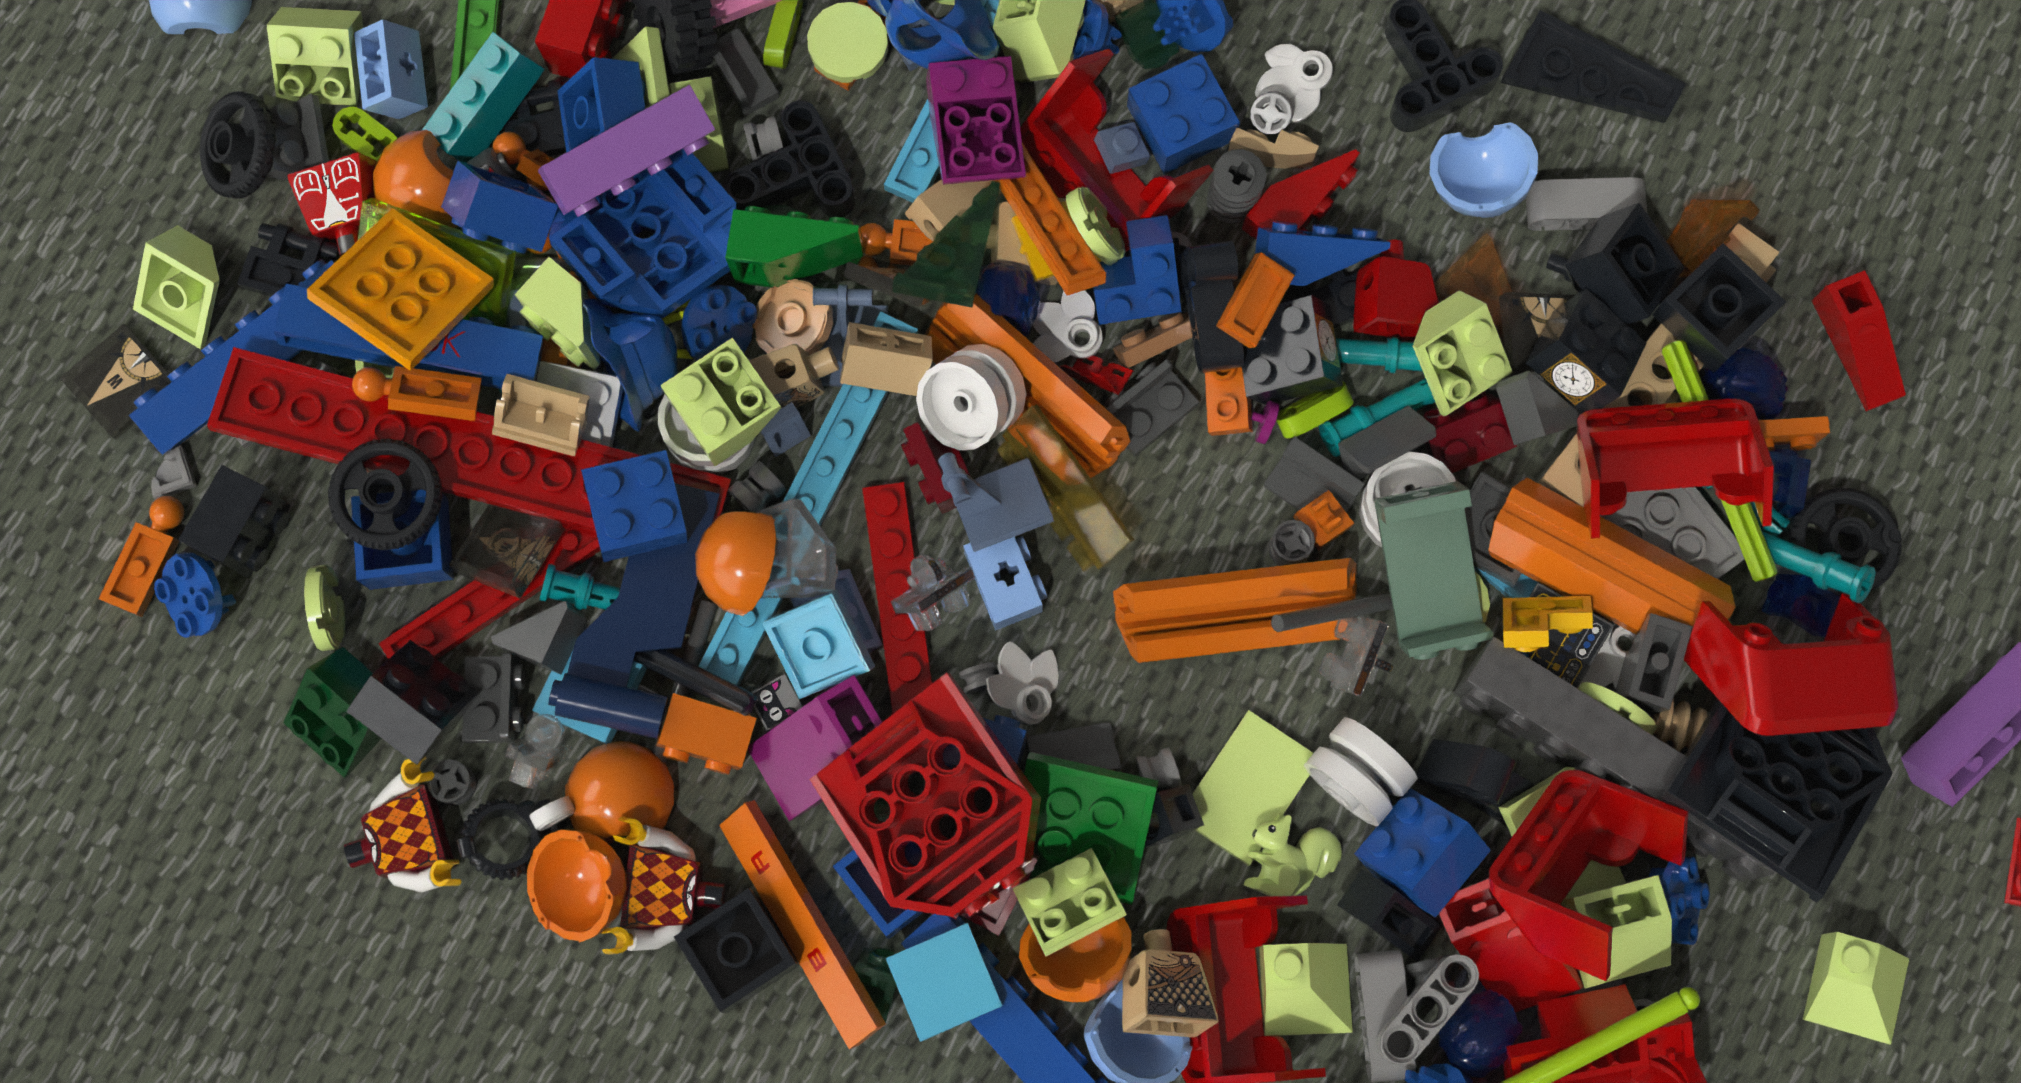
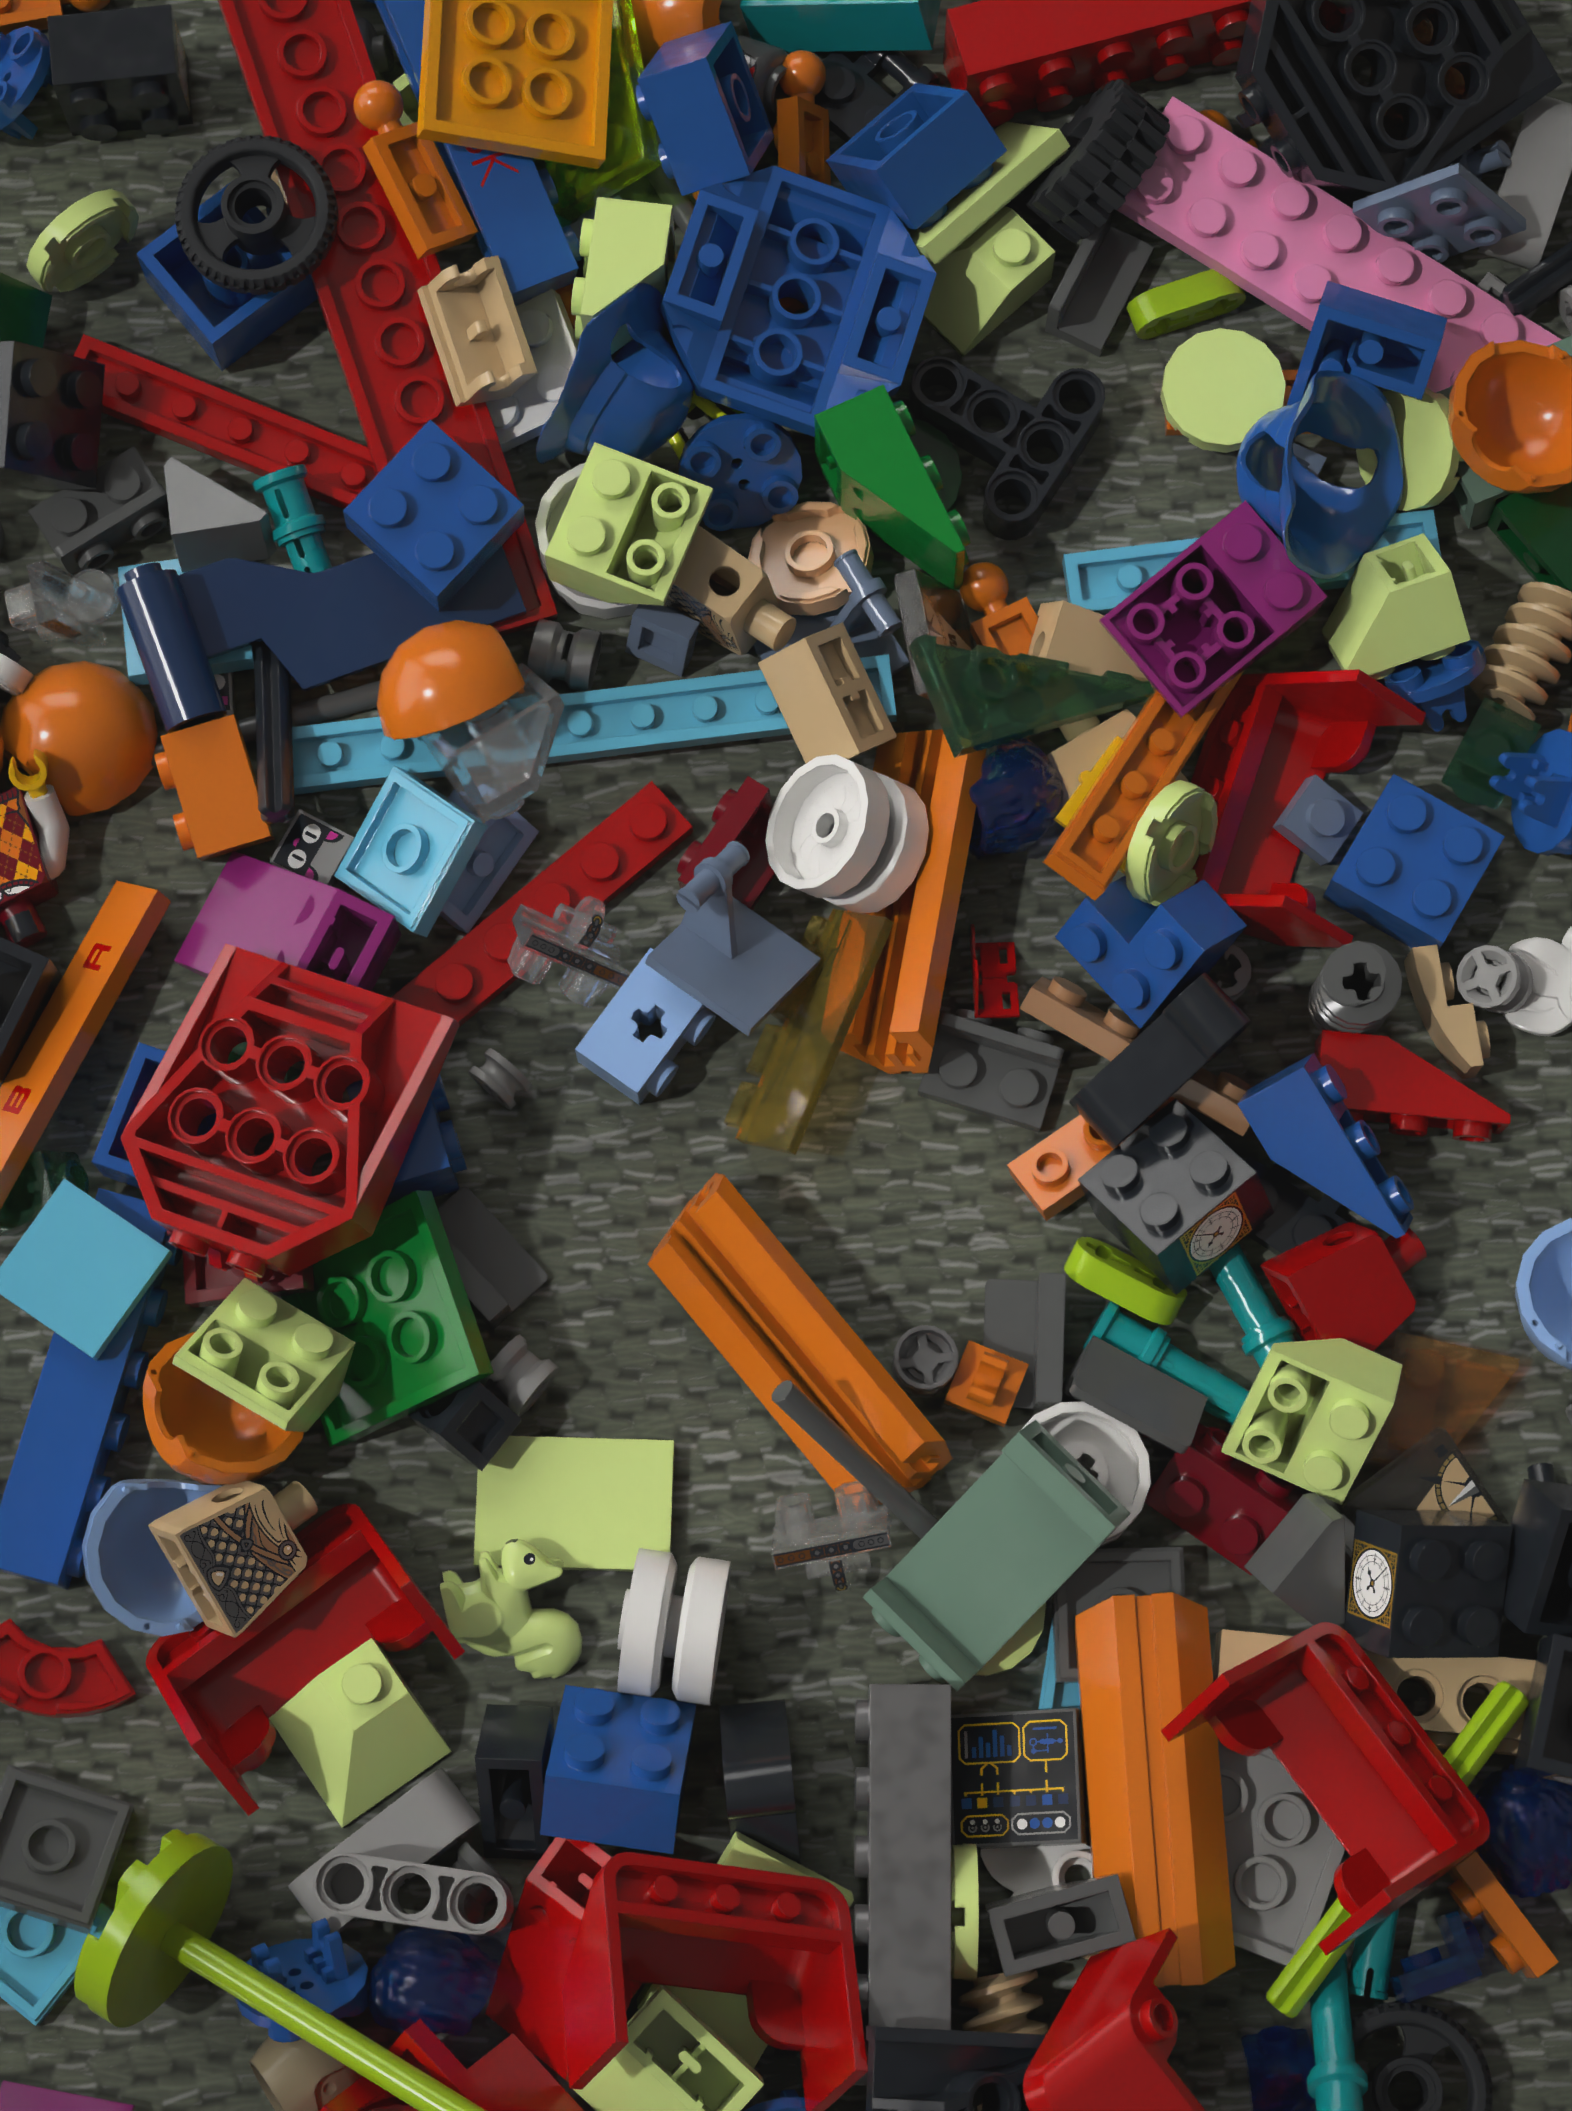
camera: 55 degrees right, 0 degrees up
(506, 549) = (293, 406): clear smoke tile -> none
(626, 150) = (869, 207): medium lavender brick -> none
(767, 136) = (1025, 369): light grey wheel -> none
(1022, 679) = (532, 1128): white plate -> none
(1062, 322) = (1021, 894): white plate -> none
(1255, 300) = (1202, 1105): orange tile -> none
(1266, 421) = (1069, 1229): magenta piece -> none
(1530, 619) = (1015, 1720): yellow plate -> none

